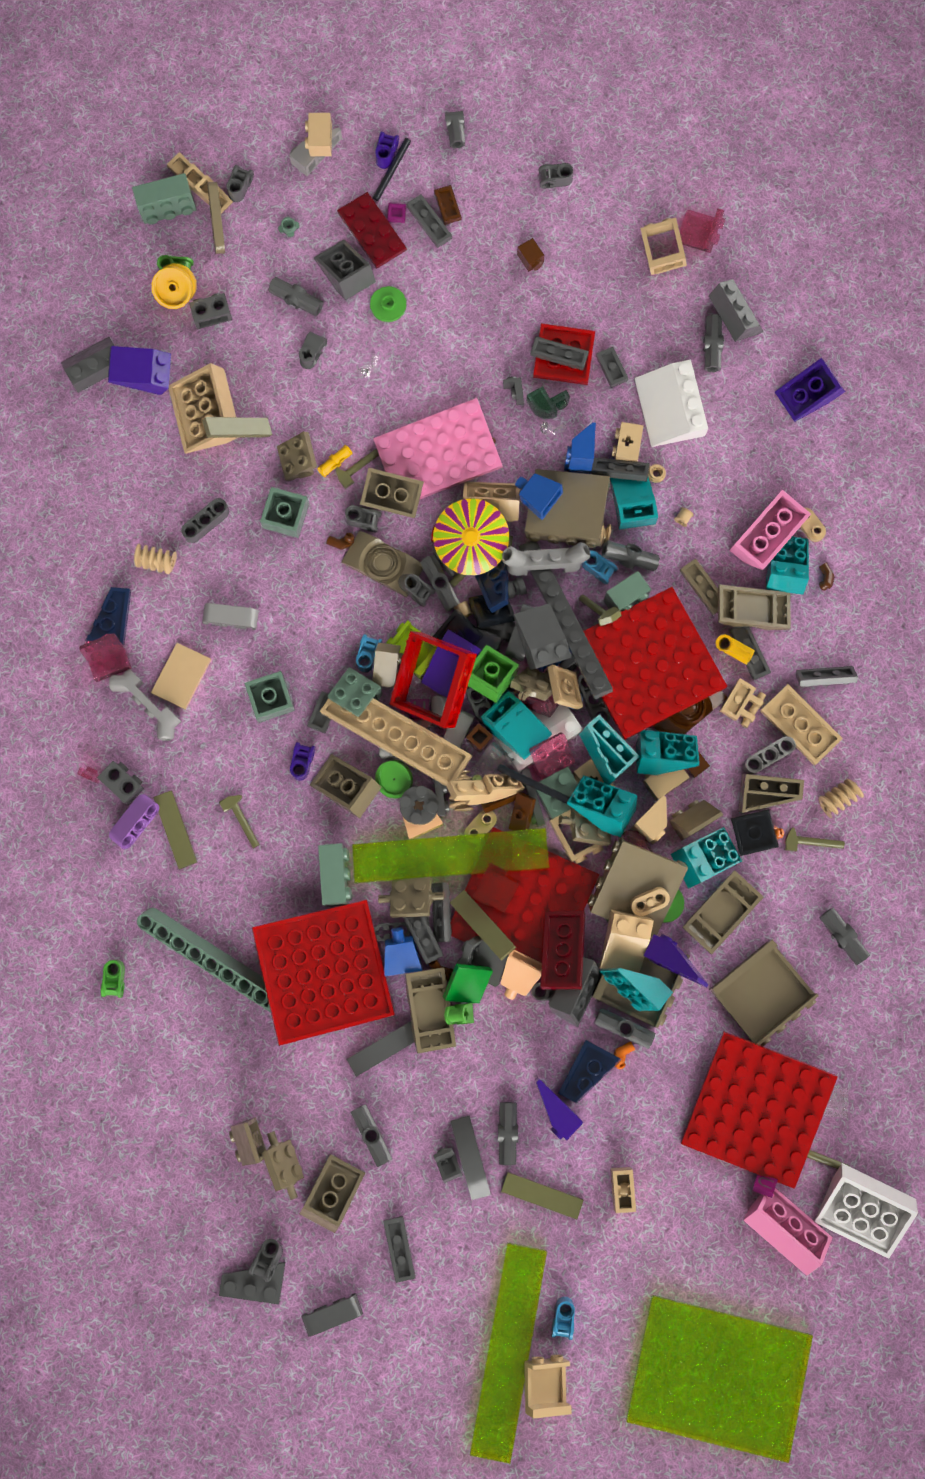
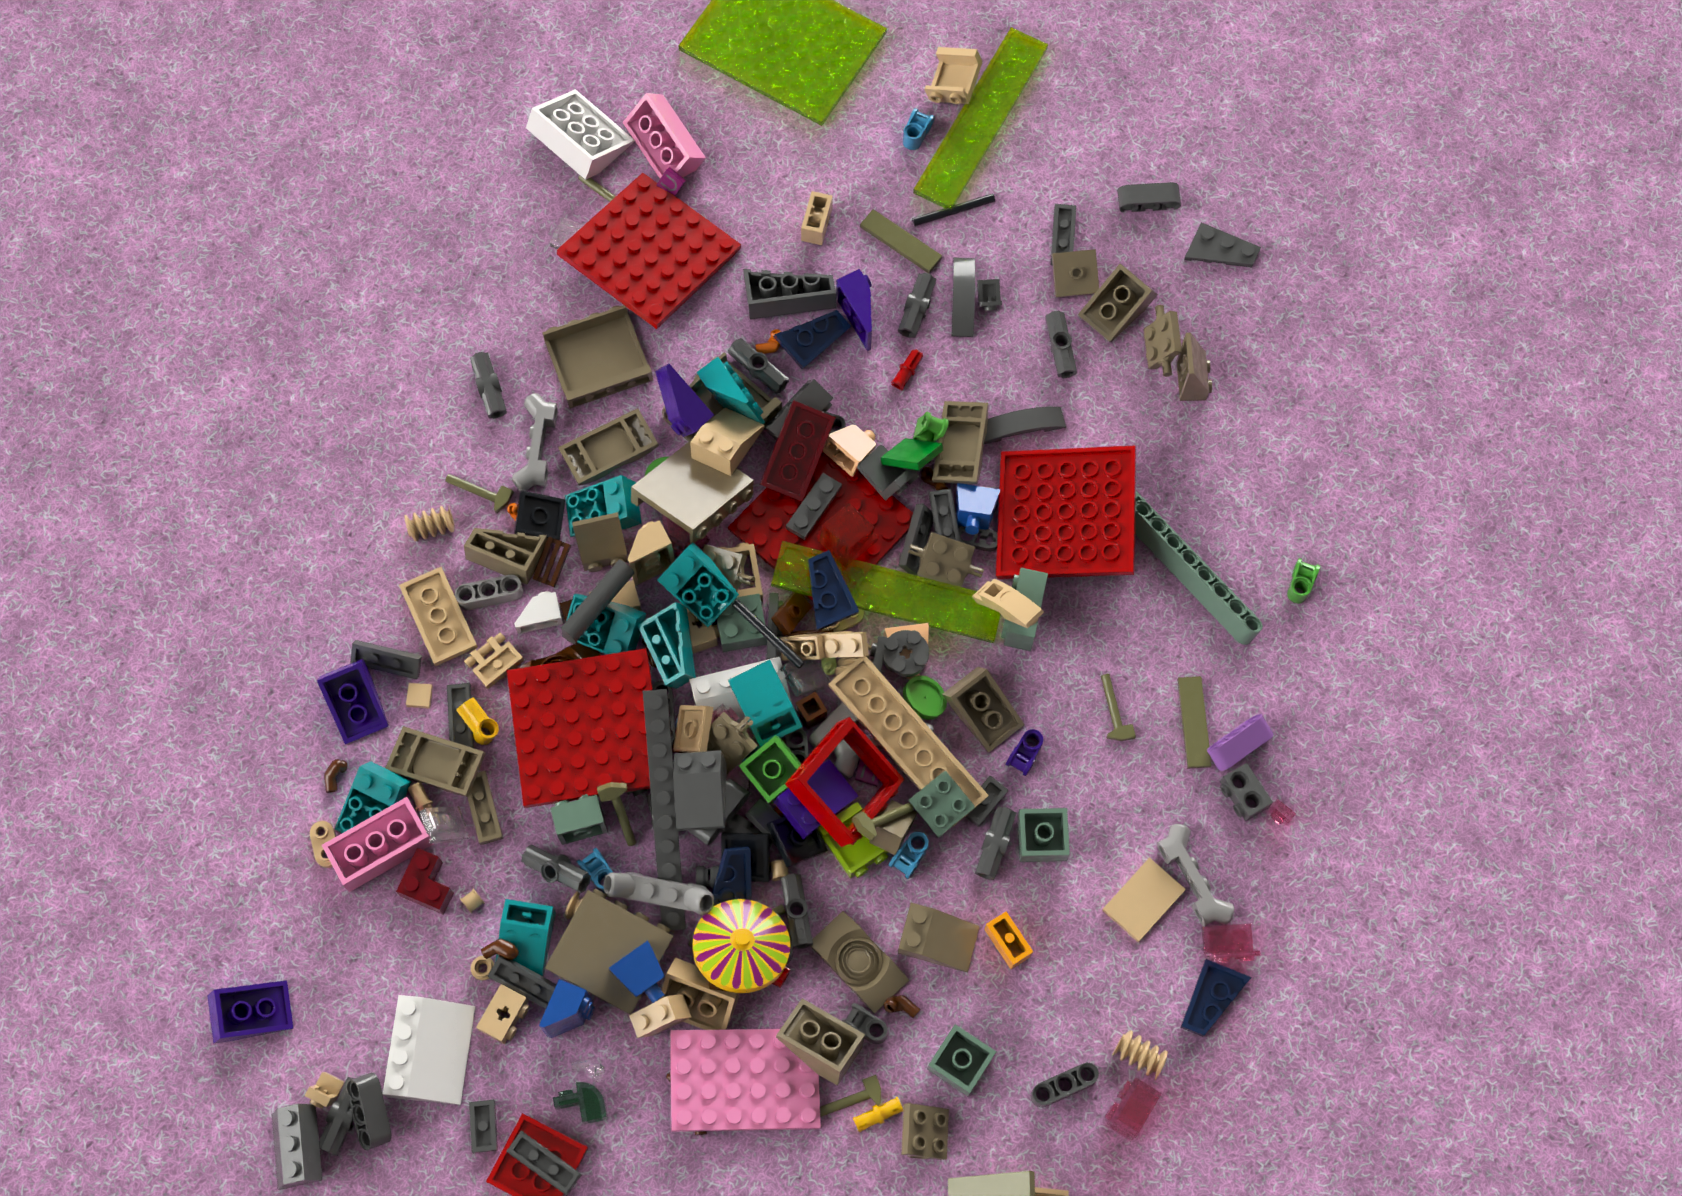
camera: 165 degrees left, 10 degrees down
(150, 514) = (1133, 1109): none -> clear pink brick
(230, 615) = (1065, 950): light grey beam -> none
(266, 1261) = (1205, 259): dark grey piece -> none
(274, 608) = (1008, 940): none -> light orange brick
(305, 682) = (995, 843): none -> dark grey piece
(328, 597) = (938, 938): none -> dark tan slope
(347, 863) = (1008, 602): none -> tan slope
(377, 1211) = (1075, 273): none -> dark tan plate
(405, 647) = (867, 826): none -> olive piece
(418, 591) = (828, 914): dark grey piece -> none
(482, 925) = (876, 505): olive tile -> none
(495, 834) = (829, 592): none -> dark blue wing
(497, 1068) = (907, 369): none -> red axle
(502, 1246) = (955, 209): none -> black bar
(510, 472) = (660, 1016): none -> tan brick
(517, 392) = (617, 1130): dark grey bracket -> none
(534, 911) = (813, 506): none -> dark grey plate
(551, 756) = (735, 657): clear pink bracket -> none
(624, 1105) = (787, 293): none -> dark grey wedge
(647, 483) = (500, 947): none -> reddish brown arm
(650, 904) = (686, 466): tan plate -> none
(677, 757) = (596, 601): none -> dark grey brick
(695, 347) = (369, 1111): none -> dark grey beam
(721, 752) = (540, 613): none -> white slope
(726, 513) = (419, 883): none -> dark red brick
(726, 561) = (444, 824): none -> clear plate
(730, 782) = (543, 559): none -> reddish brown tile
(732, 353) = (325, 1091): none -> tan bracket
(748, 574) = (420, 797): none -> tan axle
(787, 924) = (536, 470): none -> light grey plate
(788, 658) = (419, 695): none -> tan tile
(838, 636) = (353, 701): none -> dark purple slope

